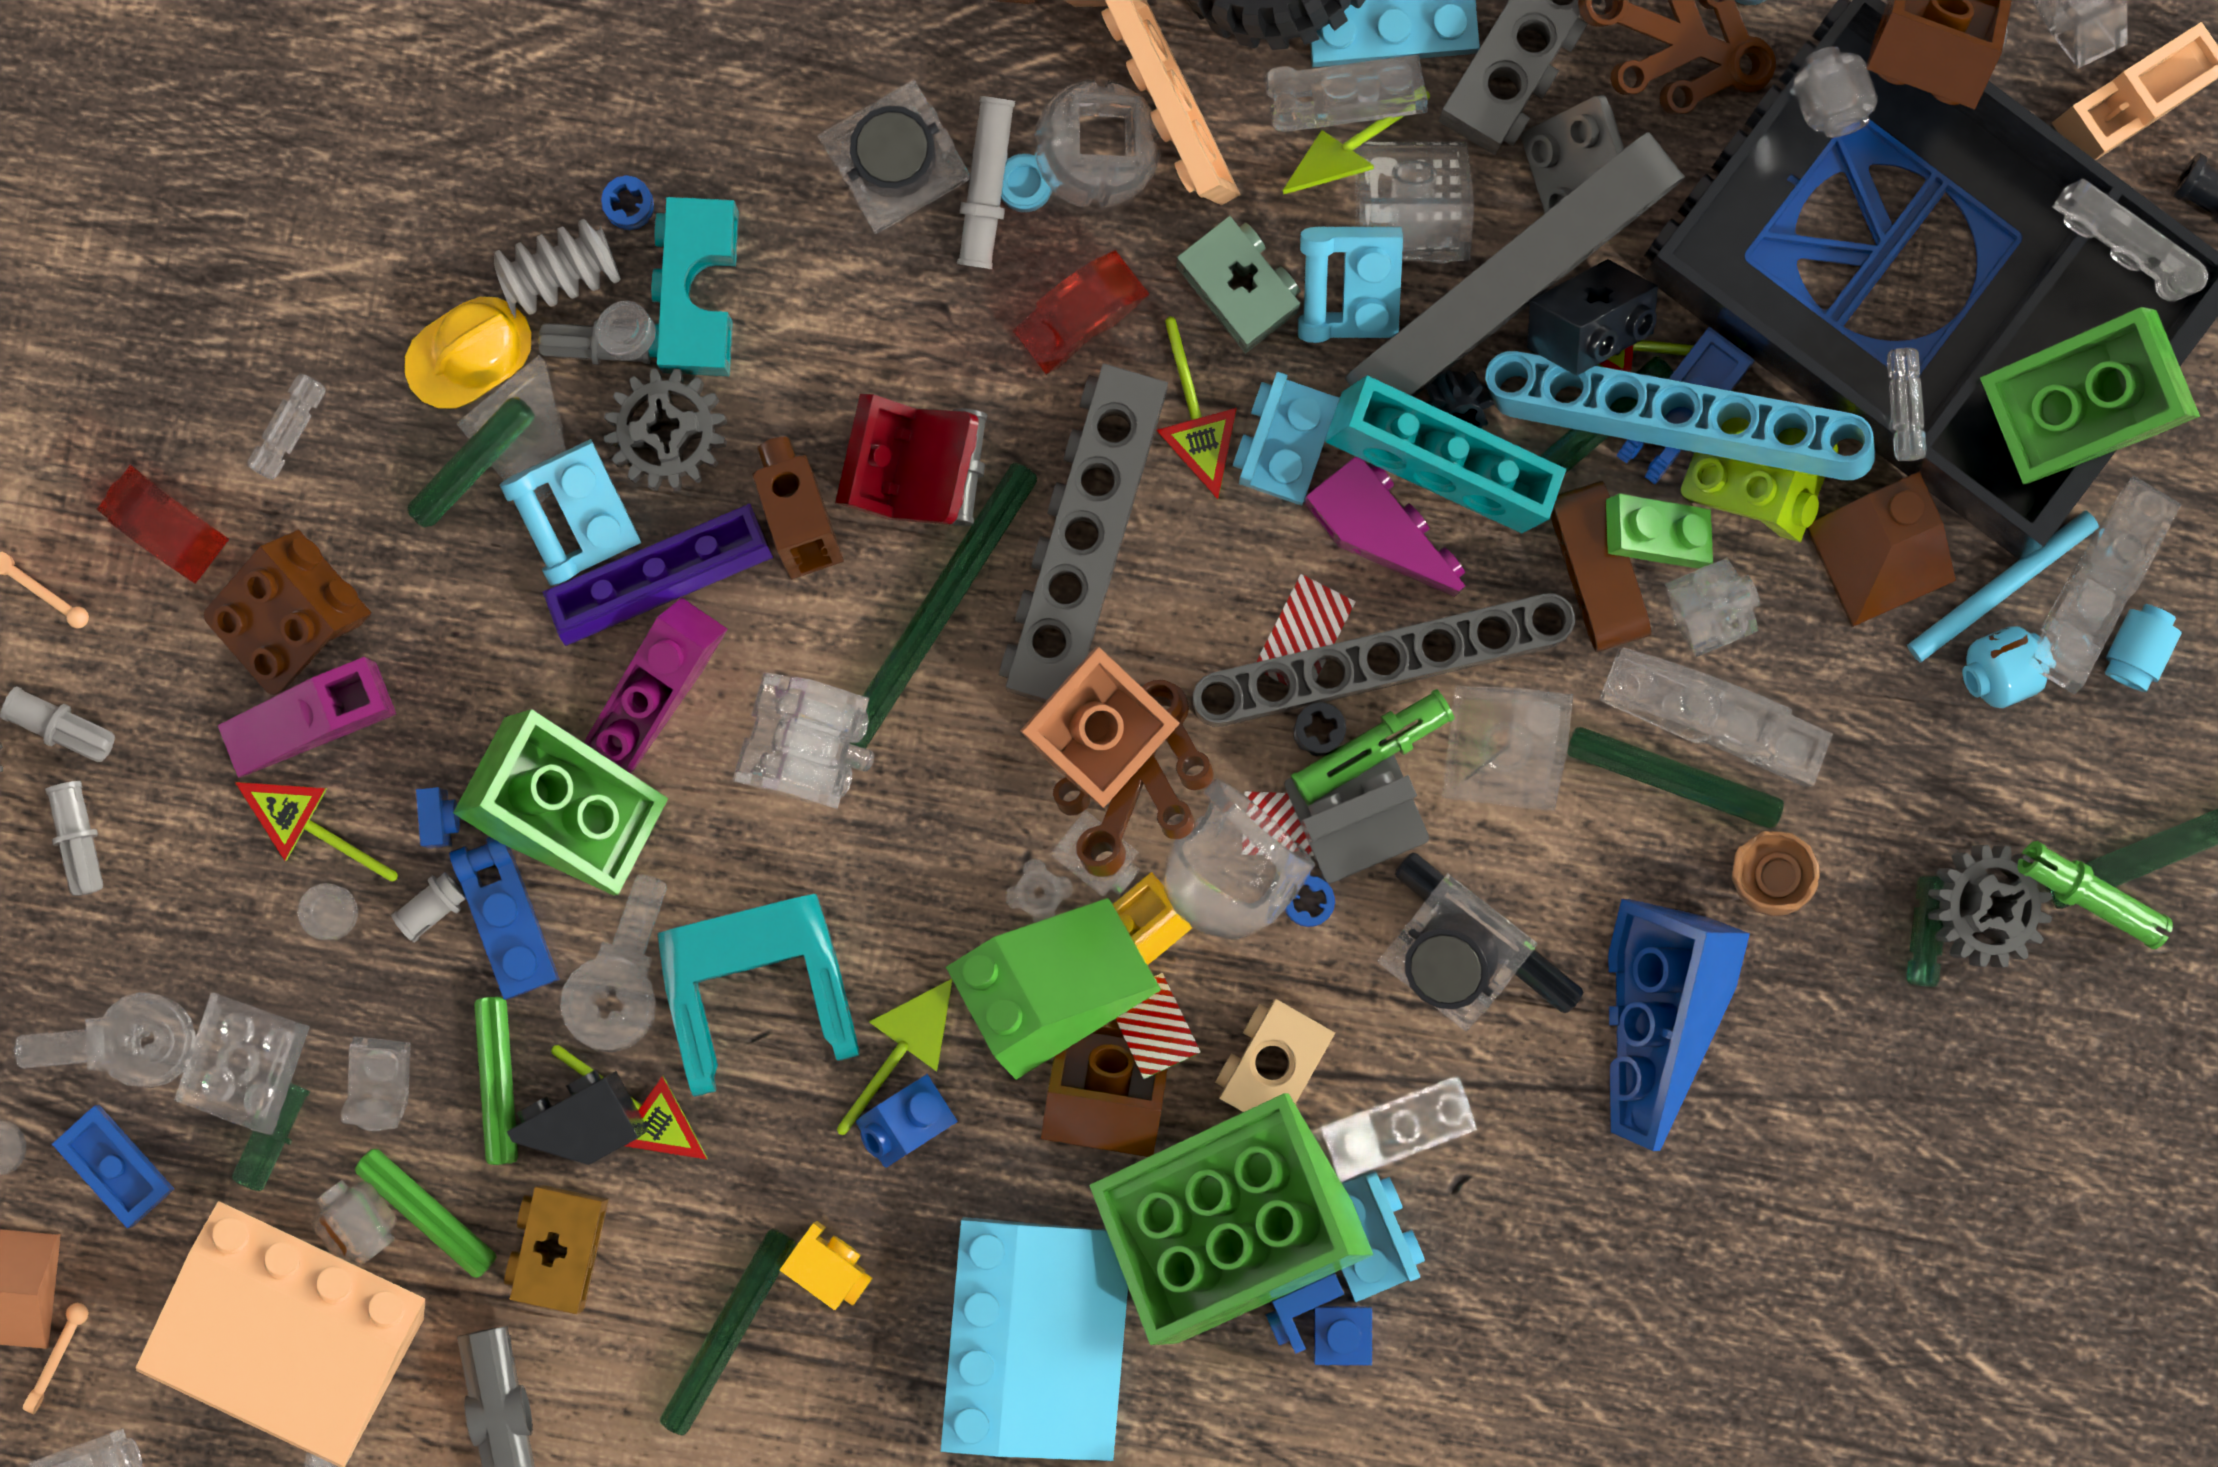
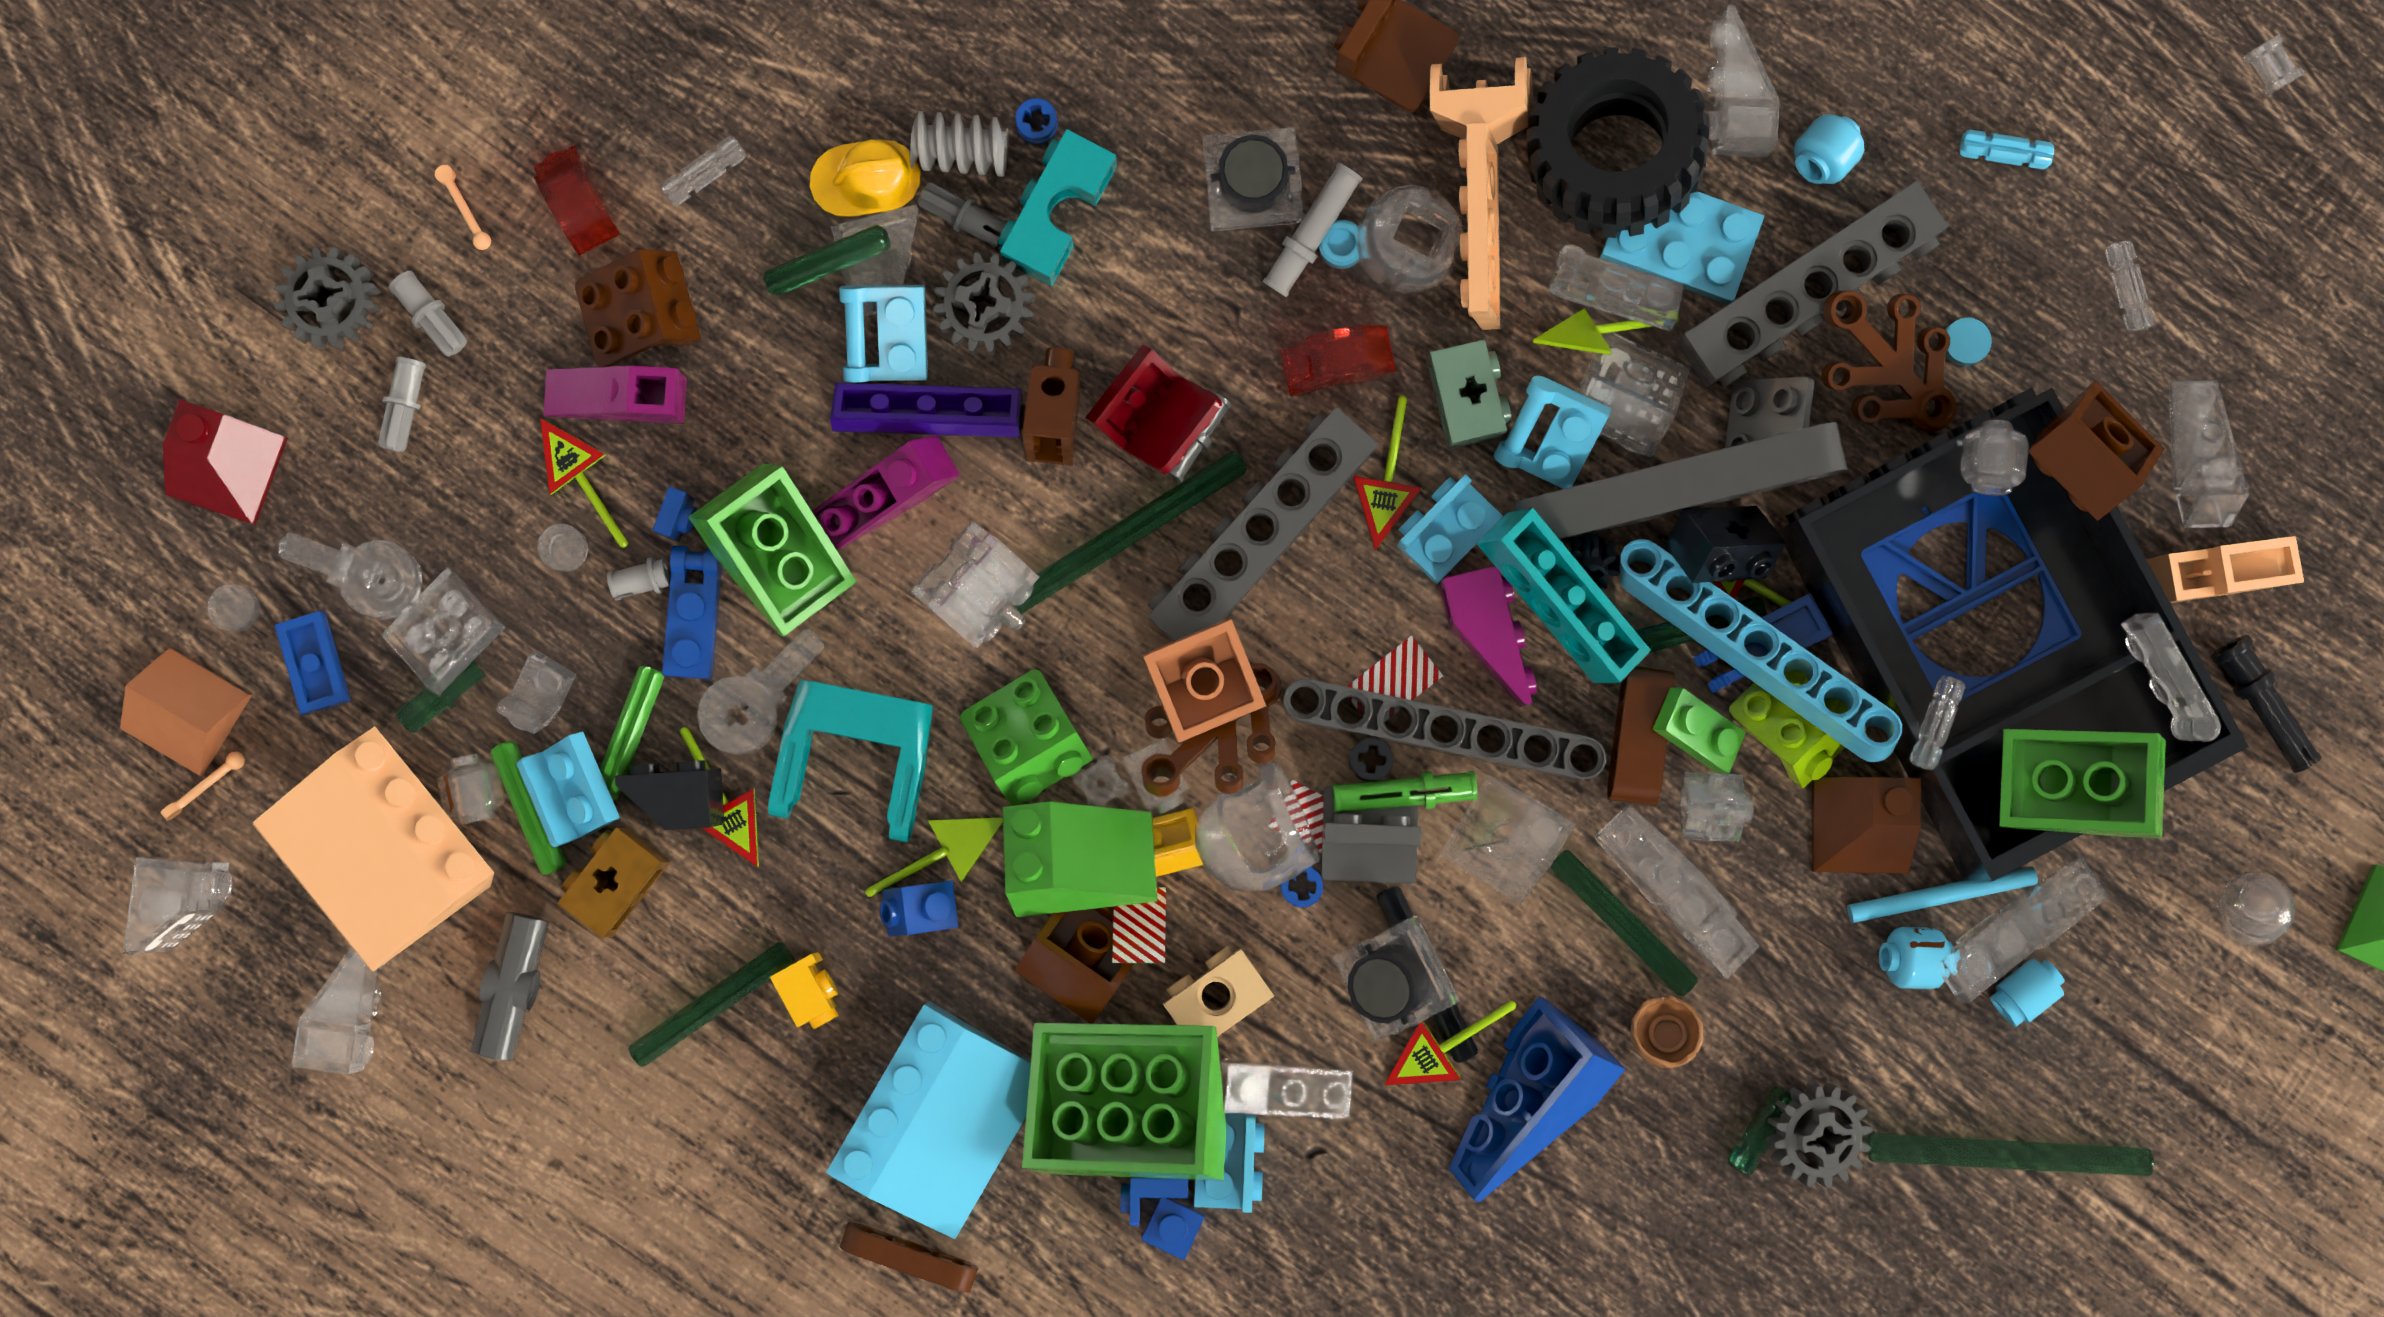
camera: 25 degrees right, 0 degrees up
(462, 1172) = (568, 790): none -> medium azure bracket
(625, 330) = (988, 215): clear tile -> none
(933, 881) = (1025, 738): none -> bright green bracket
(1530, 1024) = (1426, 1059): none -> piece
(2076, 884) = (1895, 1151): bright green pin -> none

